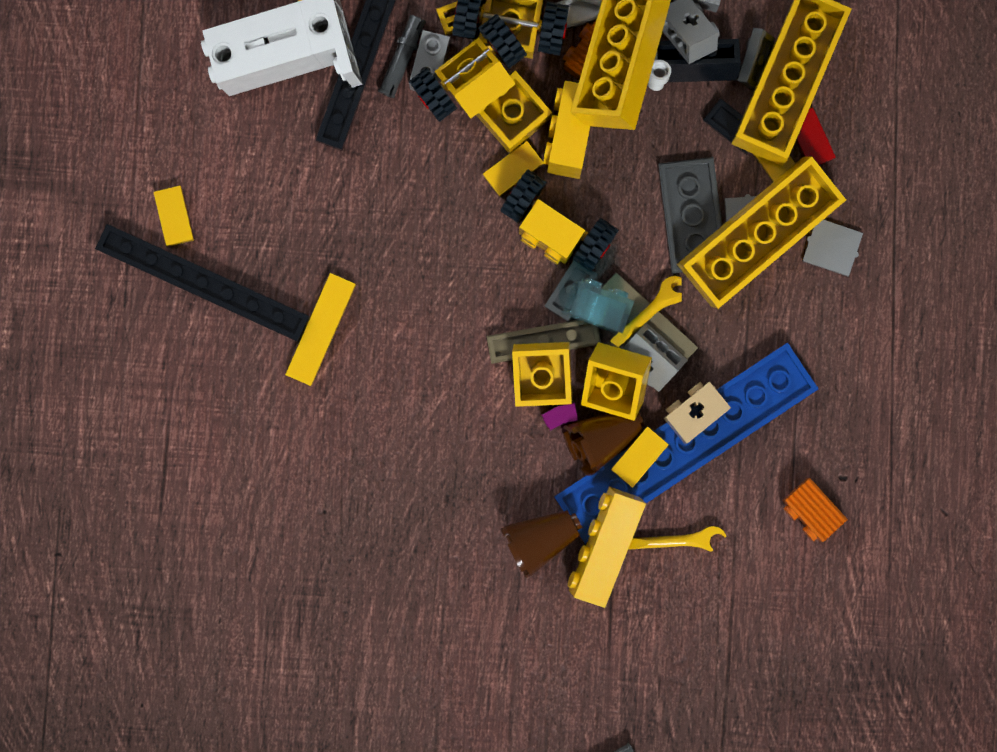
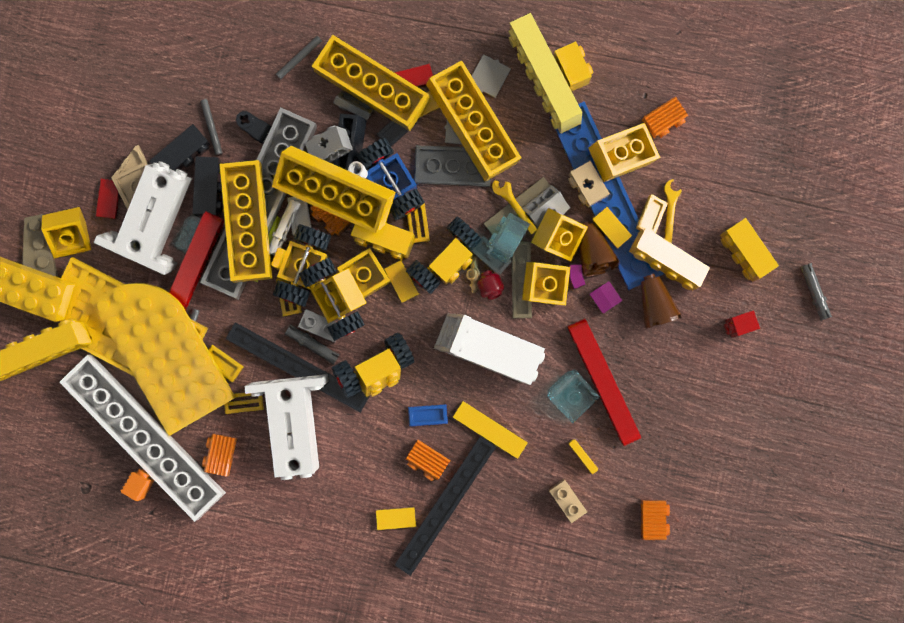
camera: 85 degrees left, 0 degrees up
(228, 584) = (654, 520): none -> orange brick
(235, 455) = (567, 501): none -> tan brick
(263, 246) = (427, 460): none -> orange brick
(303, 467) = (583, 456): none -> yellow tile
(327, 237) = (427, 415): none -> blue tile
(376, 151) = (377, 371): none -> brick
(387, 438) = (572, 395): none -> clear light blue slope
(414, 481) = (604, 382): none -> red beam
(434, 308) = (490, 348): none -> white brick
(527, 295) = (490, 285): none -> dark red head
(529, 666) = (741, 324): none -> red brick
(537, 464) = (605, 297): none -> magenta piece
(539, 269) = (473, 274): none -> tan piece
(579, 185) = (420, 238): none -> yellow tile
(638, 660) = (748, 250): none -> yellow brick
(659, 127) = (392, 175): none -> brick
(669, 513) = (652, 214): none -> tile
(752, 456) = (624, 152): none -> yellow brick
(842, 327) = (545, 73): none -> light yellow brick
(863, 362) = (573, 65): none -> yellow brick

